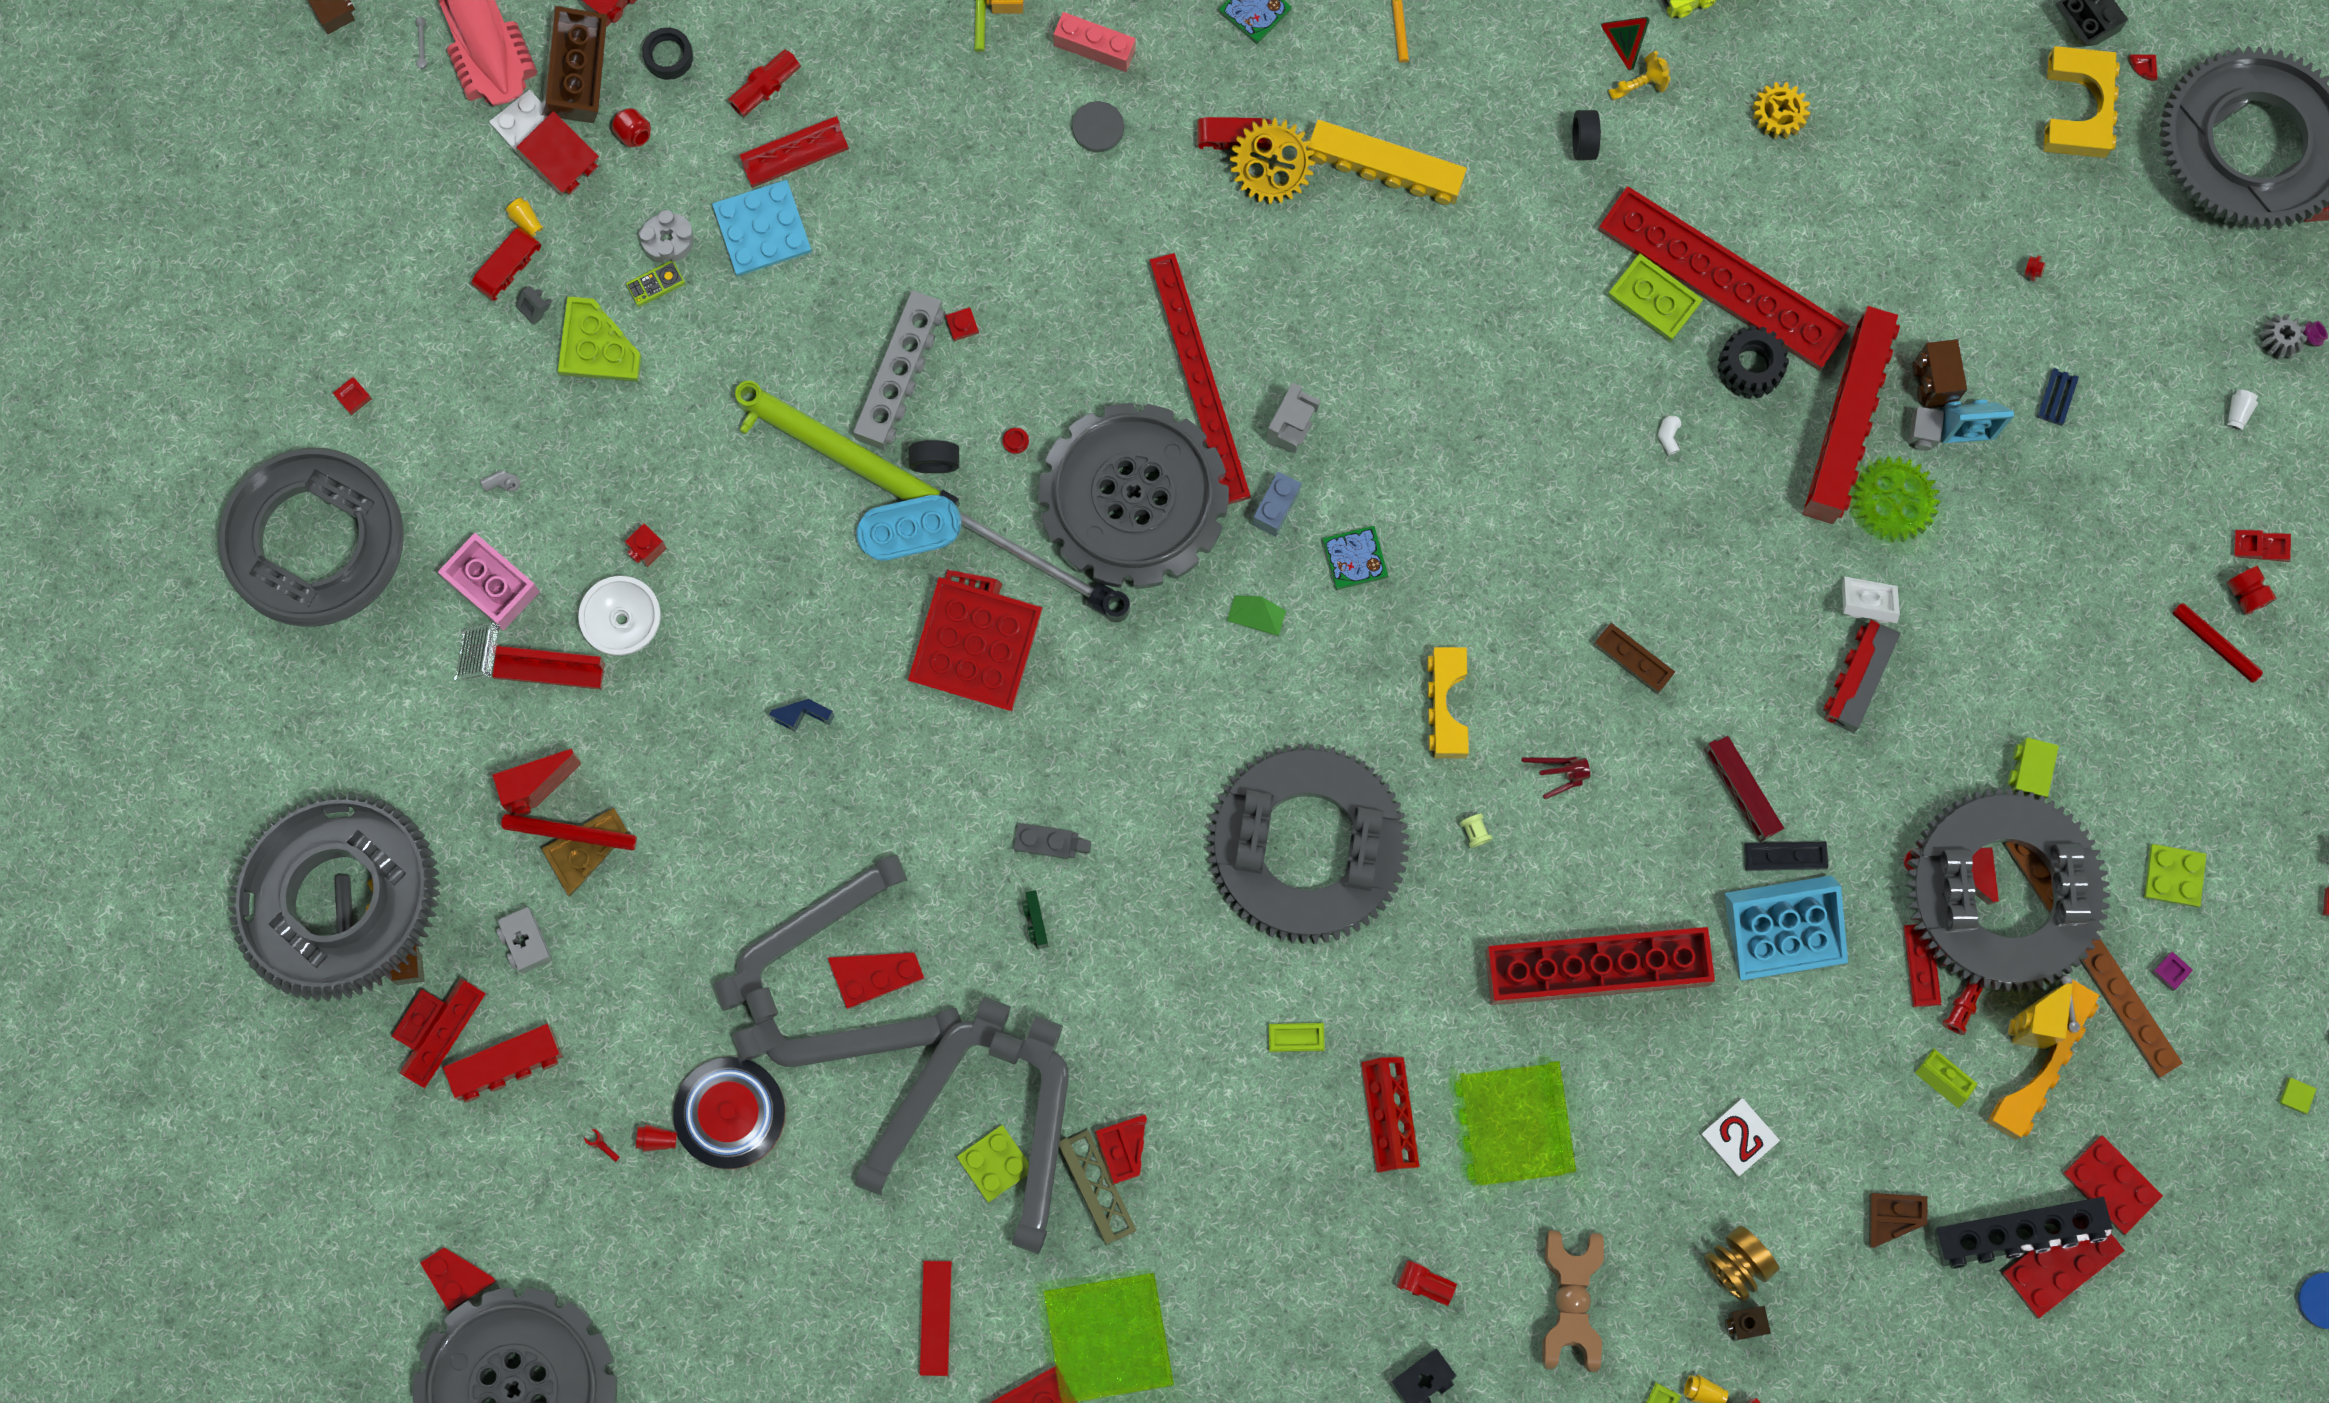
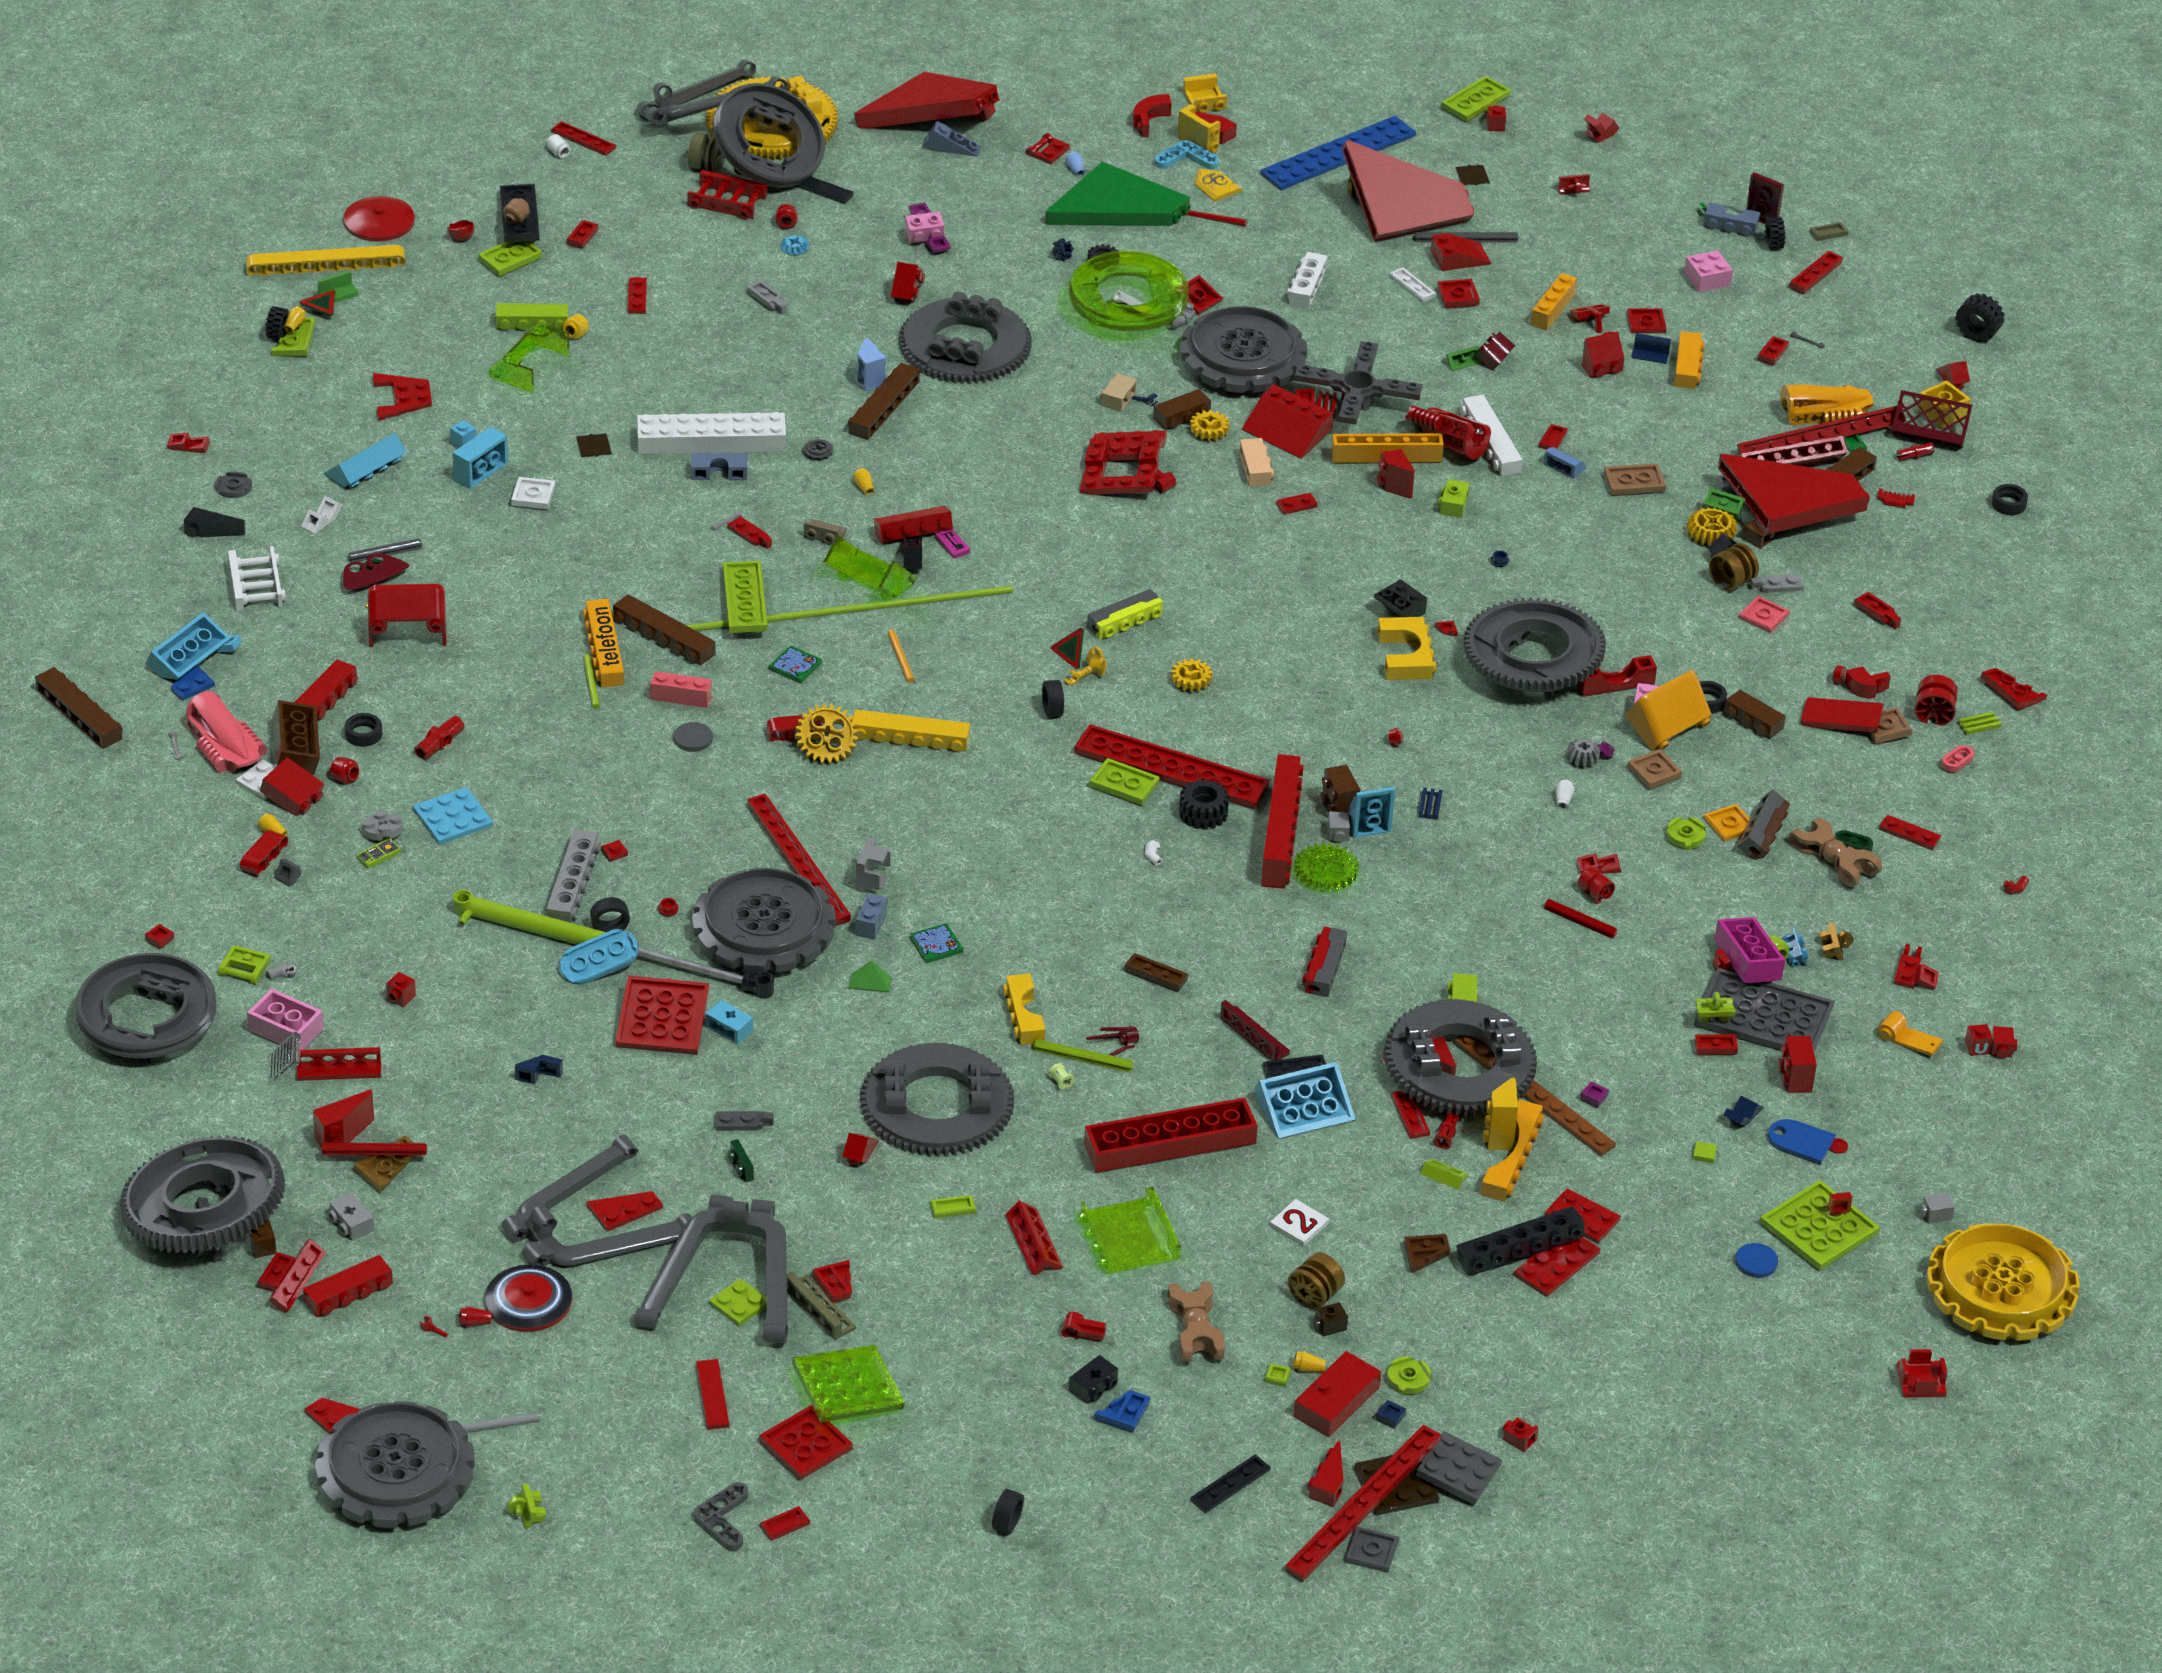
camera: 10 degrees left, 35 degrees down
(458, 456) = (244, 959): none -> lime plate
(595, 345) = (340, 889): lime plate -> none
(617, 598) = (389, 1026): white dish -> none
(654, 1323) = (503, 1422): none -> light grey bar
(794, 151) = (468, 773): red fence -> none
(1065, 681) = (729, 1022): none -> medium azure brick
(1193, 918) = (859, 1148): none -> red slope
(1512, 793) = (1083, 1055): none -> lime axle
(1870, 600) = (1328, 919): white plate -> none
(2073, 1026) = (1527, 1123): light grey hinge -> none
(2175, 875) = (1583, 1045): lime plate -> none

